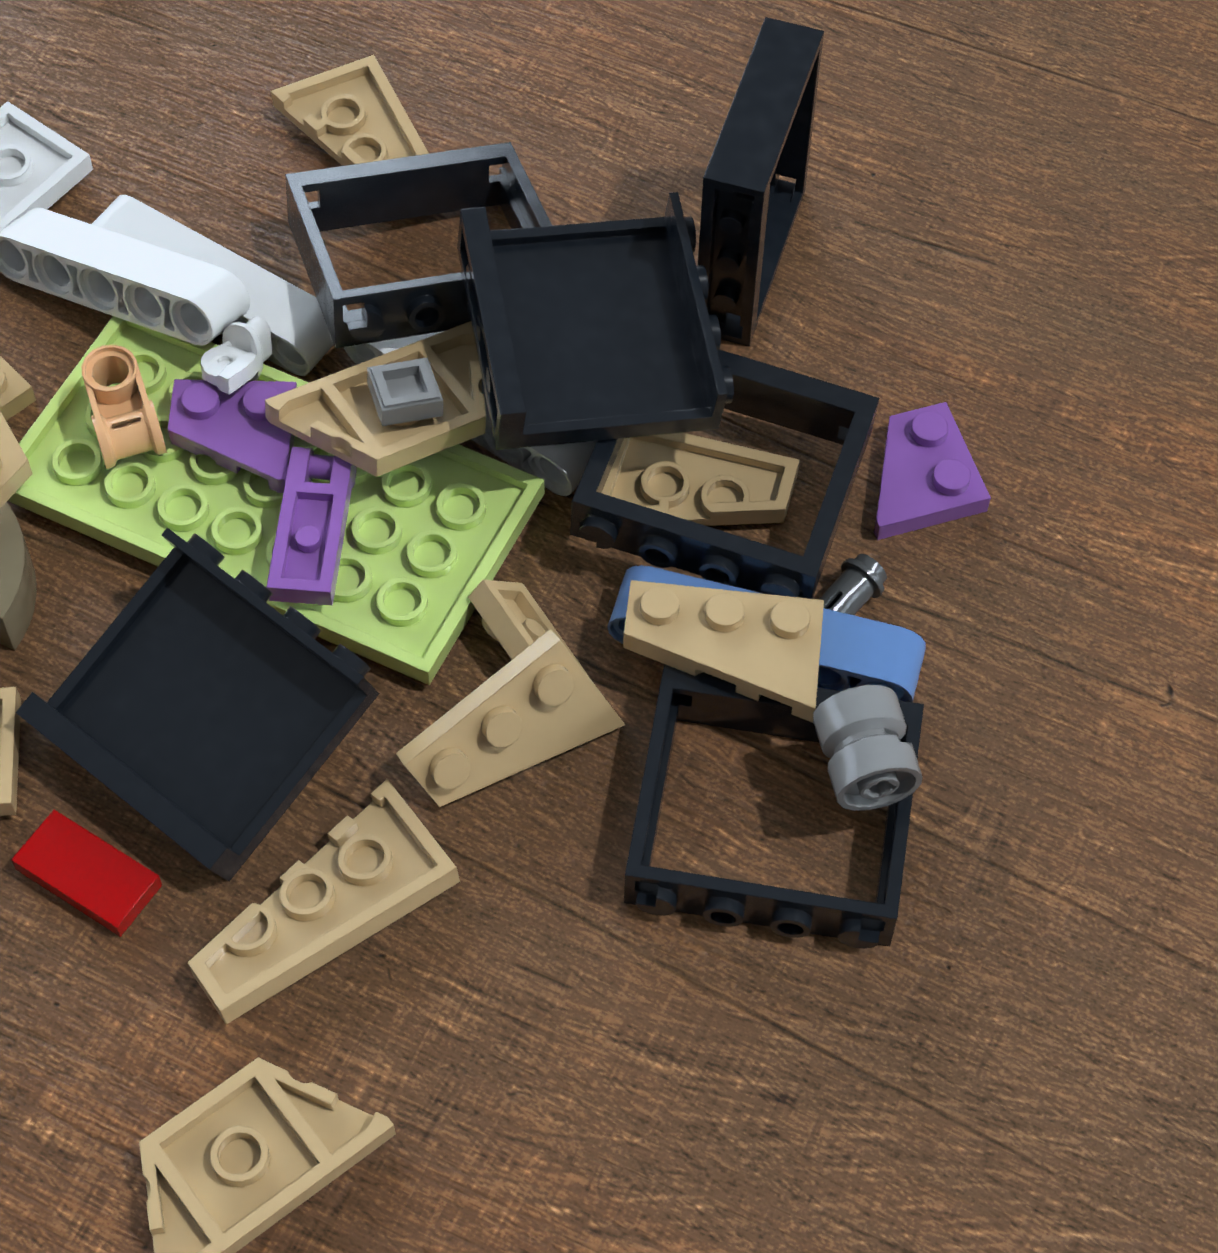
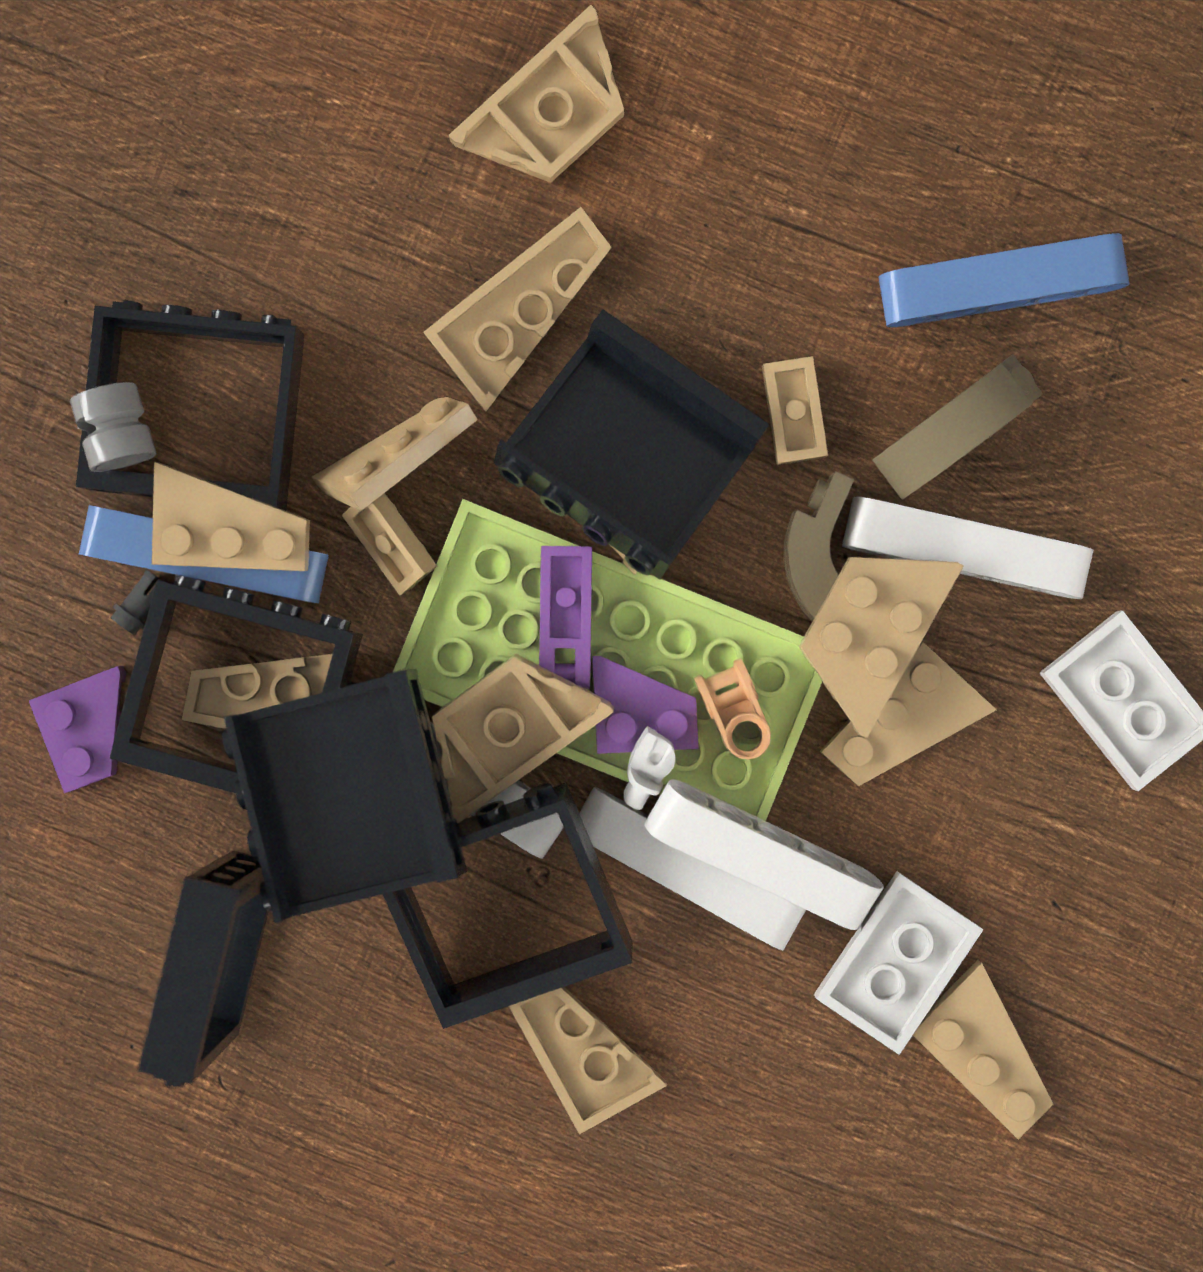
camera: 175 degrees right, 30 degrees up
(87, 872) = (700, 322): red tile -> none
(404, 391) = (499, 728): light grey tile -> none

